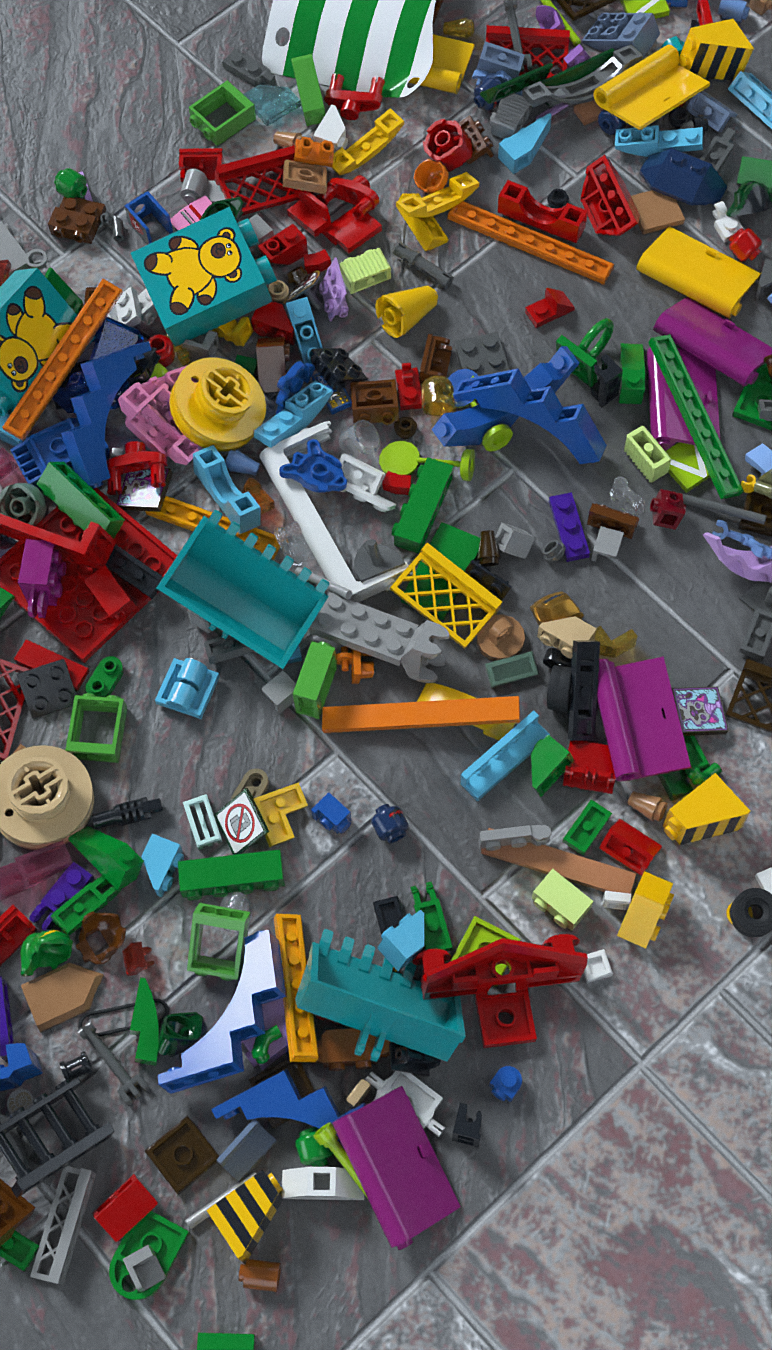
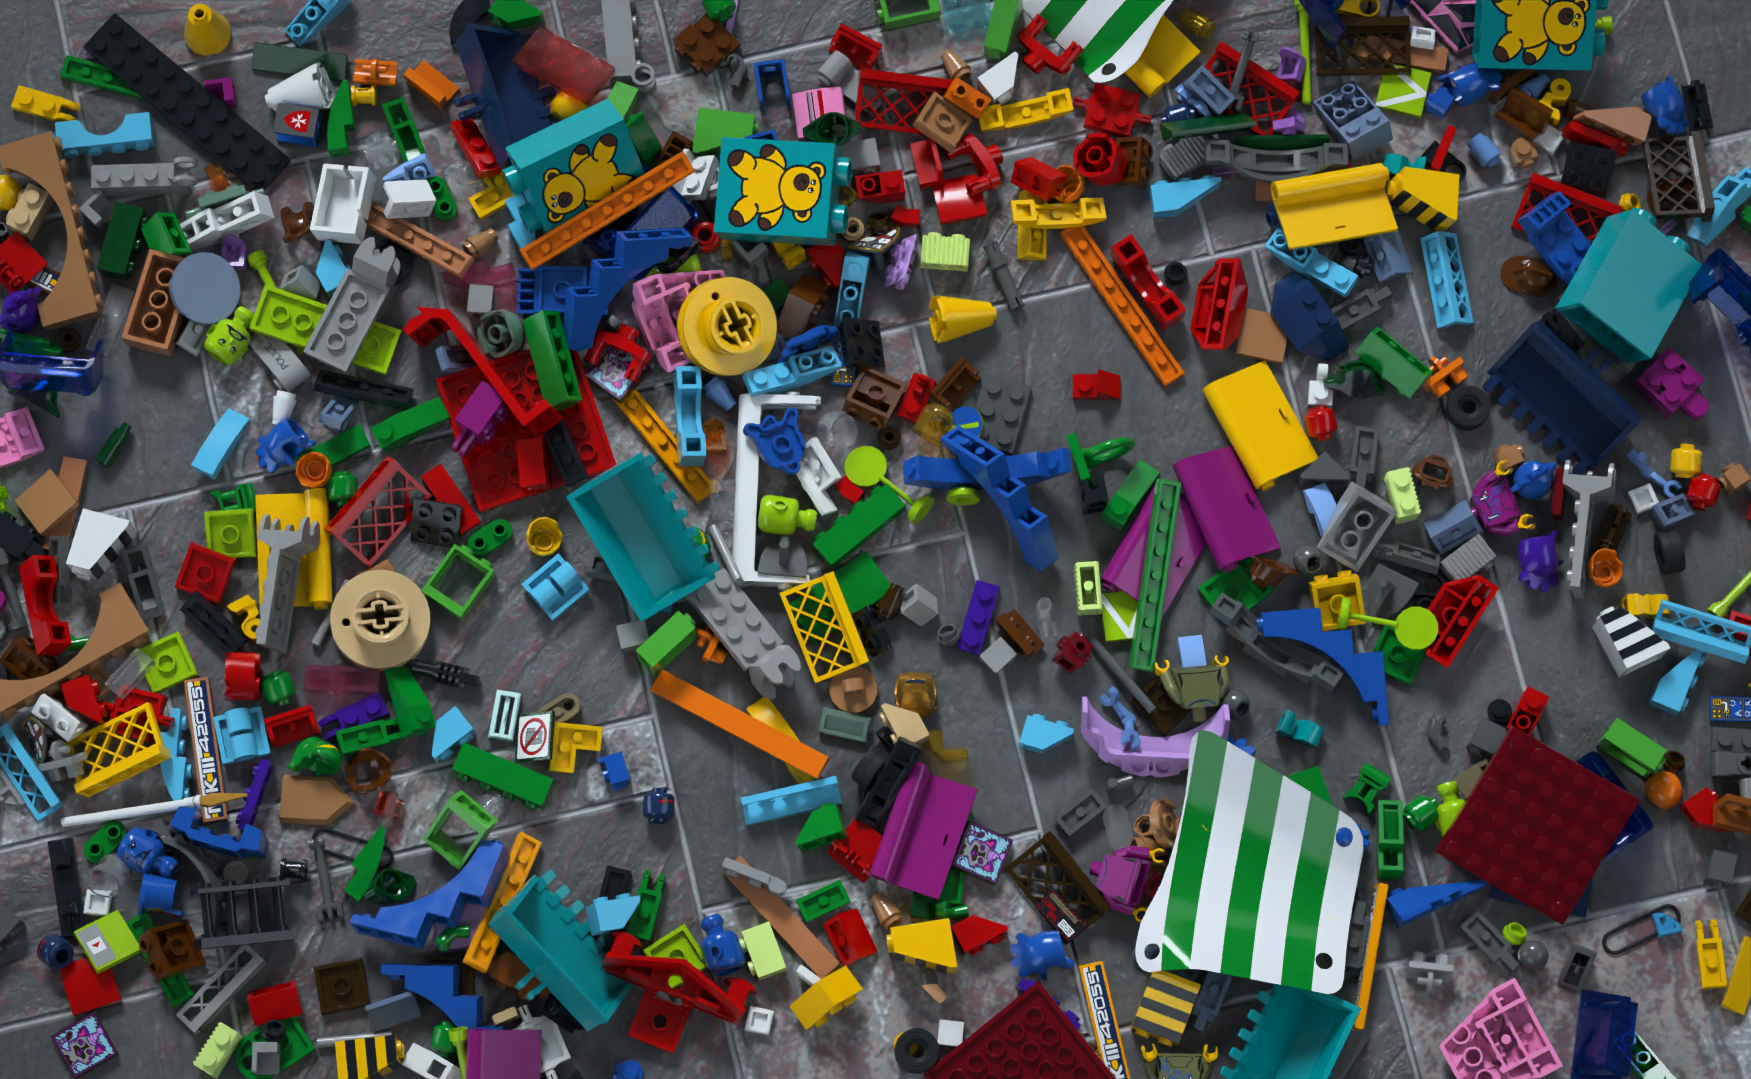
camera: 25 degrees right, 10 degrees up
(91, 1288) = (218, 1050): none -> yellowish green brick
(121, 269) = (715, 124): none -> bright green slope
(138, 1236) = (273, 1031): none -> black plate
(153, 650) = (544, 536): none -> yellow hair
(354, 527) = (782, 516): none -> lime piece
(406, 181) = (1037, 178): none -> red hinge
(429, 110) = (1112, 110): none -> red plate
(522, 917) = (721, 948): none -> blue piece
(684, 588) = (1043, 735): none -> medium azure slope
(727, 846) = (930, 985): none -> arm
(742, 776) = (976, 932): none -> red slope

